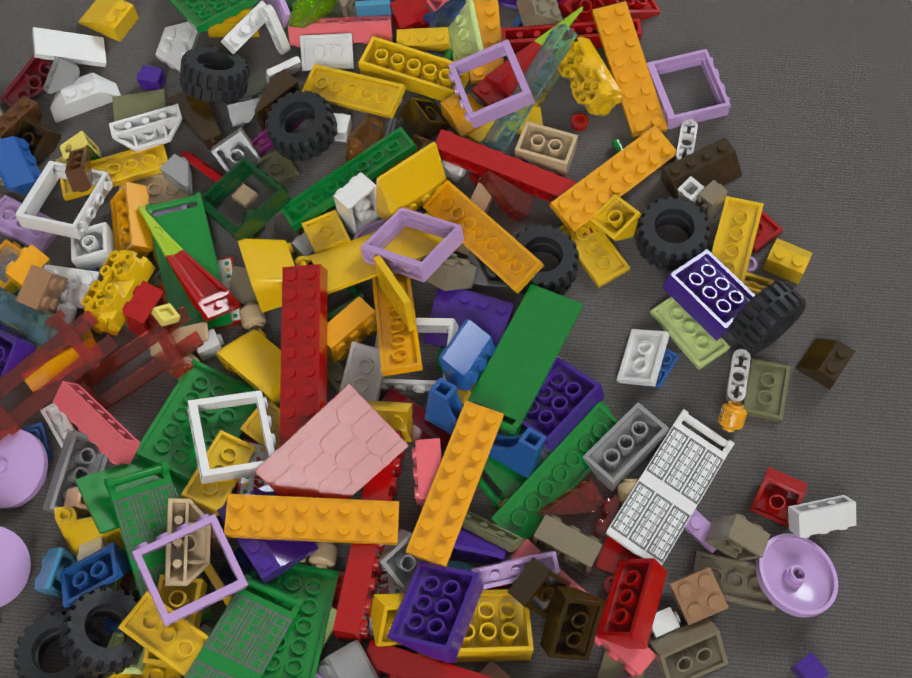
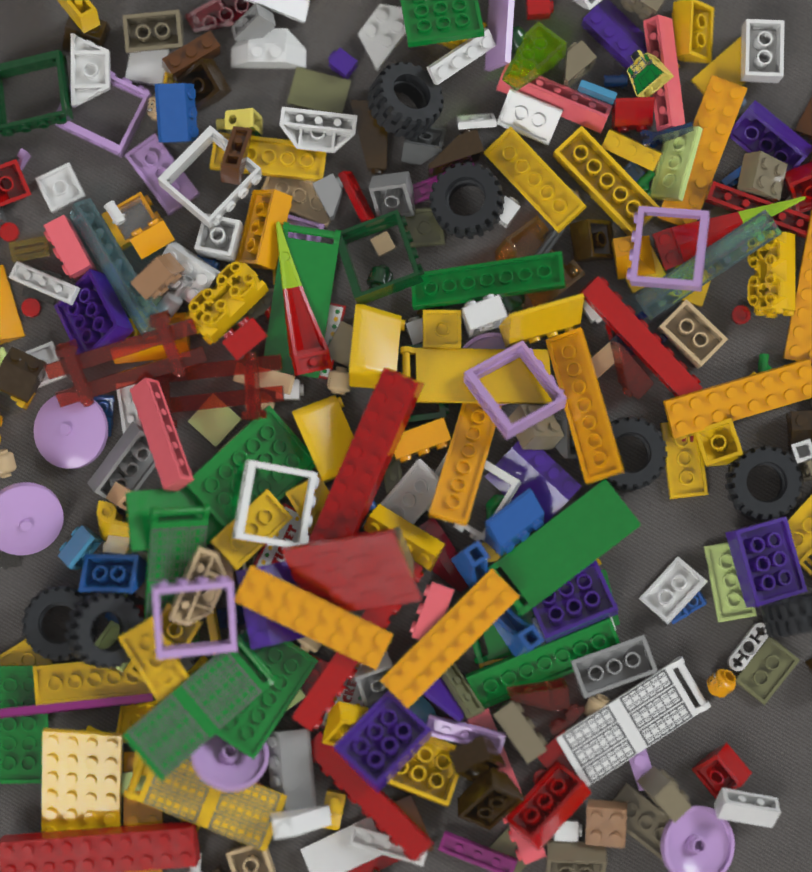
camera: 25 degrees right, 20 degrees up
(147, 402) = (215, 423): none -> yellowish green tile
(165, 314) = (260, 358): light yellow tile -> none
(275, 29) = (488, 67): white beam -> none
(395, 293) = (475, 436): yellow tile -> none

